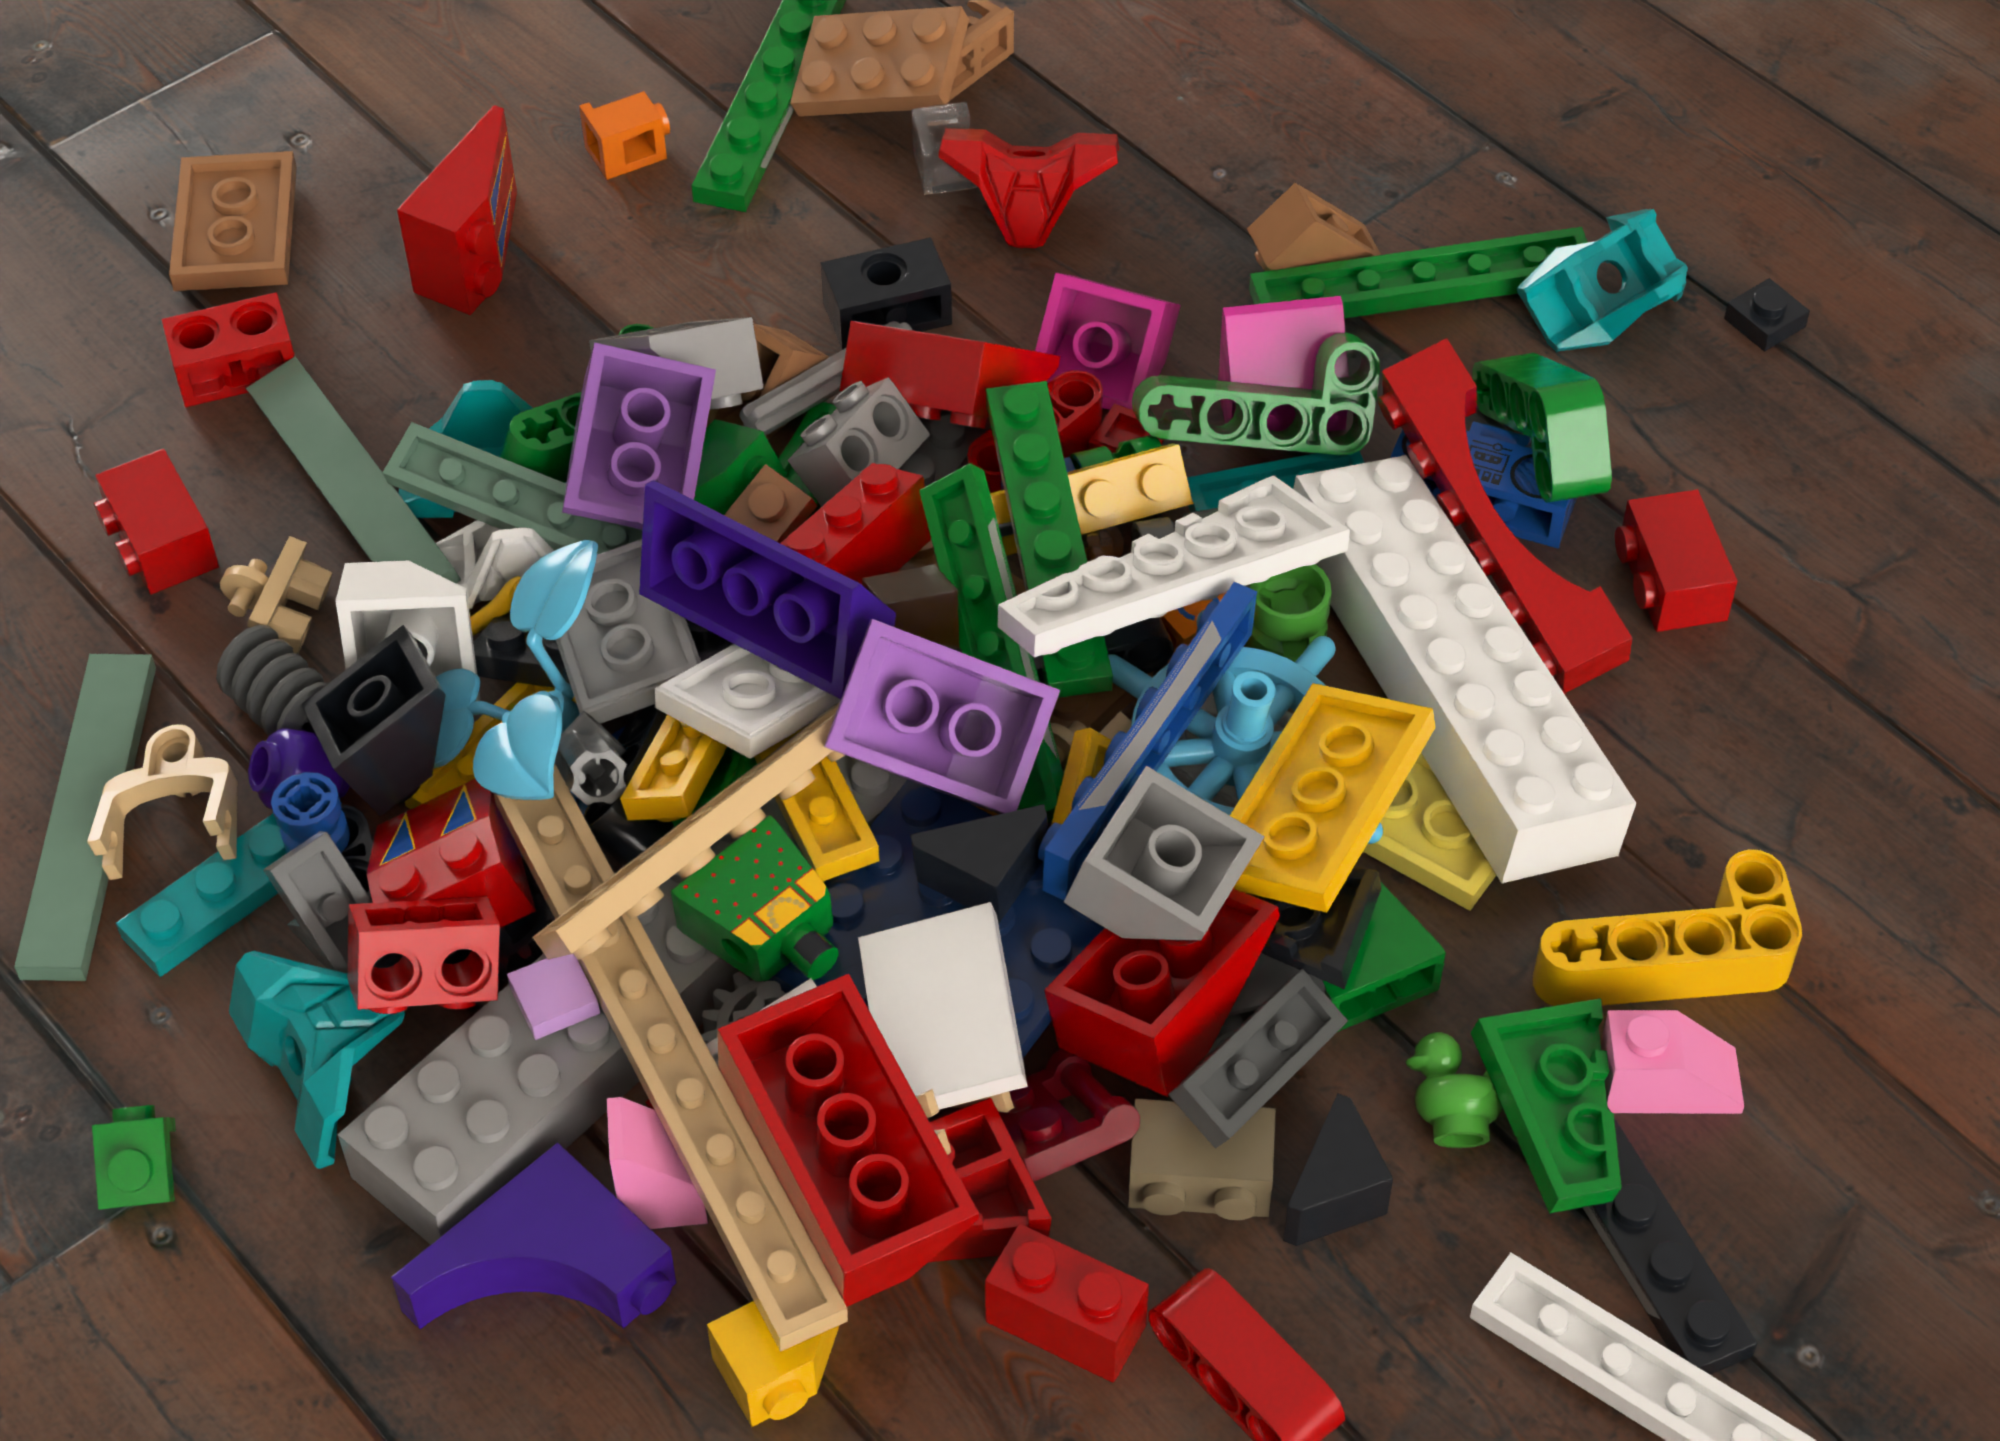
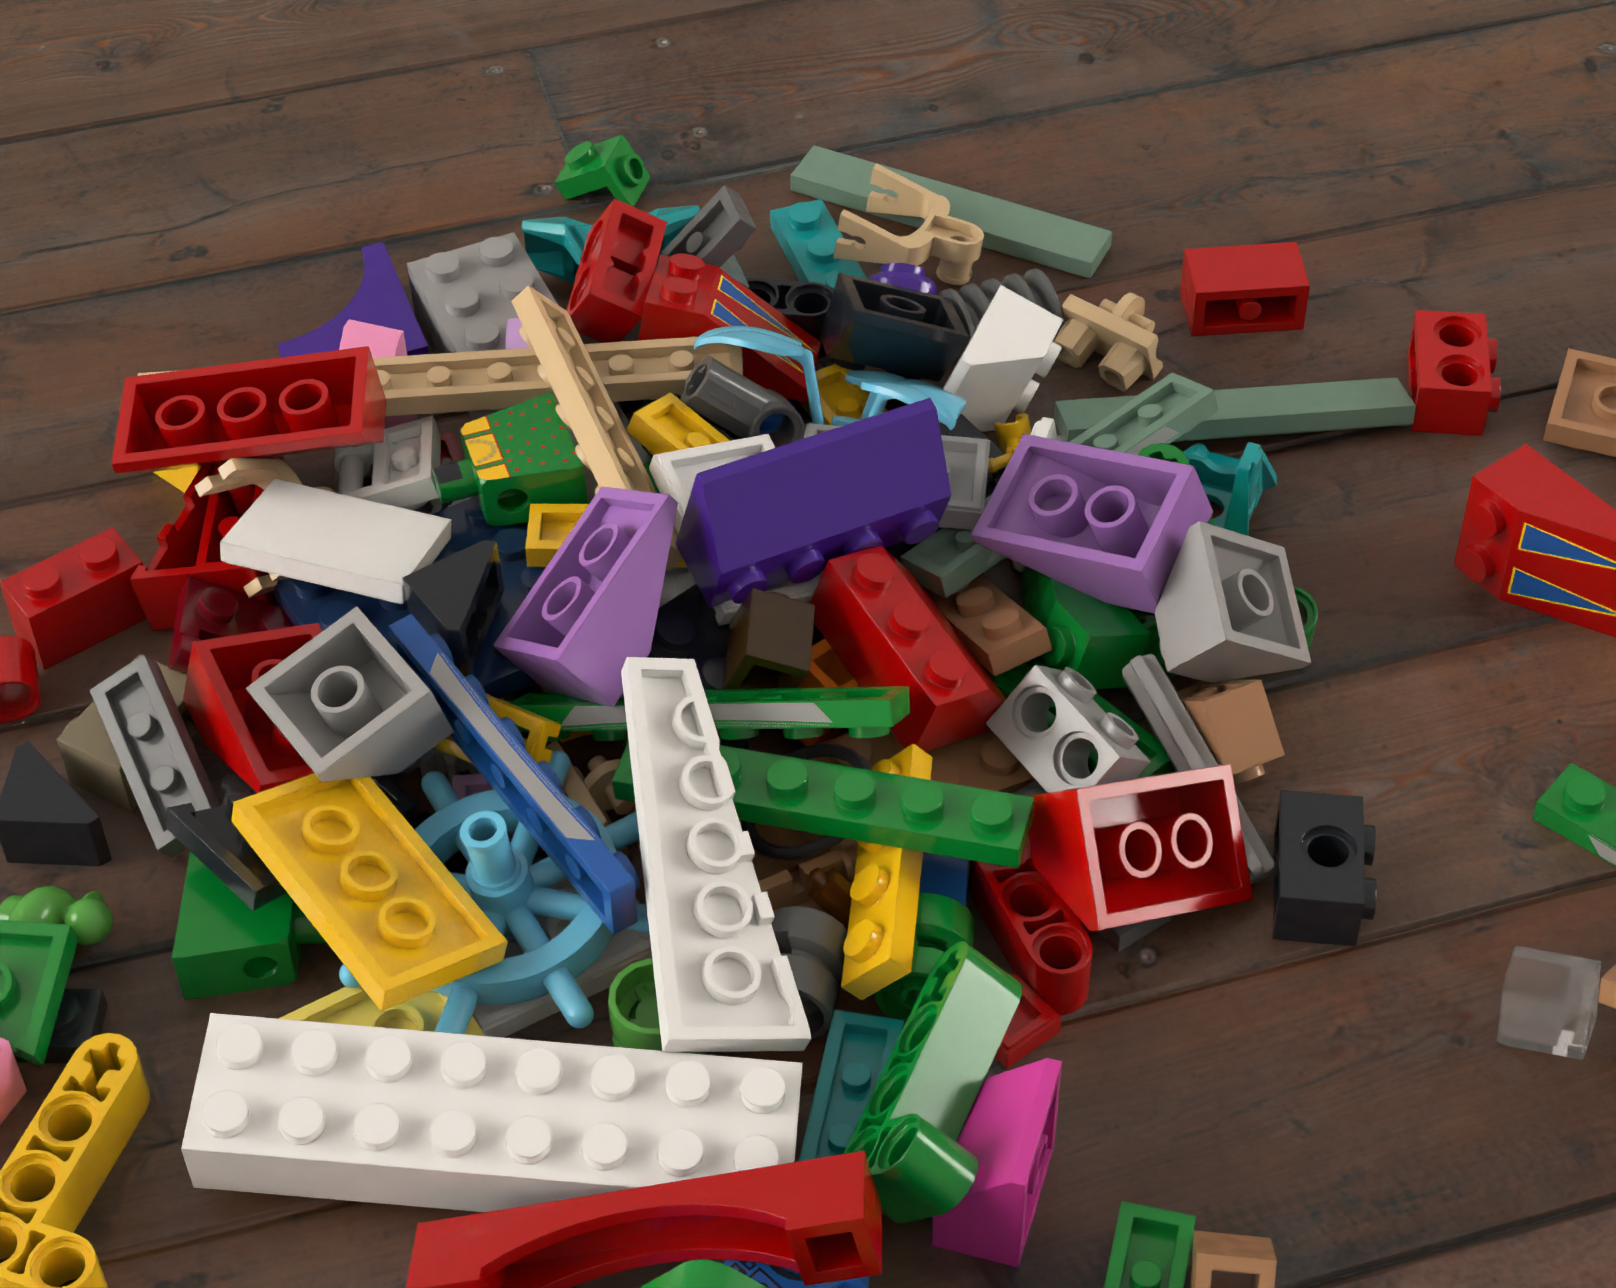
camera: 115 degrees right, 5 degrees down
(305, 807) = (808, 253): blue wheel -> none
(1027, 183) = (1471, 985): red piece -> none
(1107, 333) = (1157, 1035): dark pink slope -> none

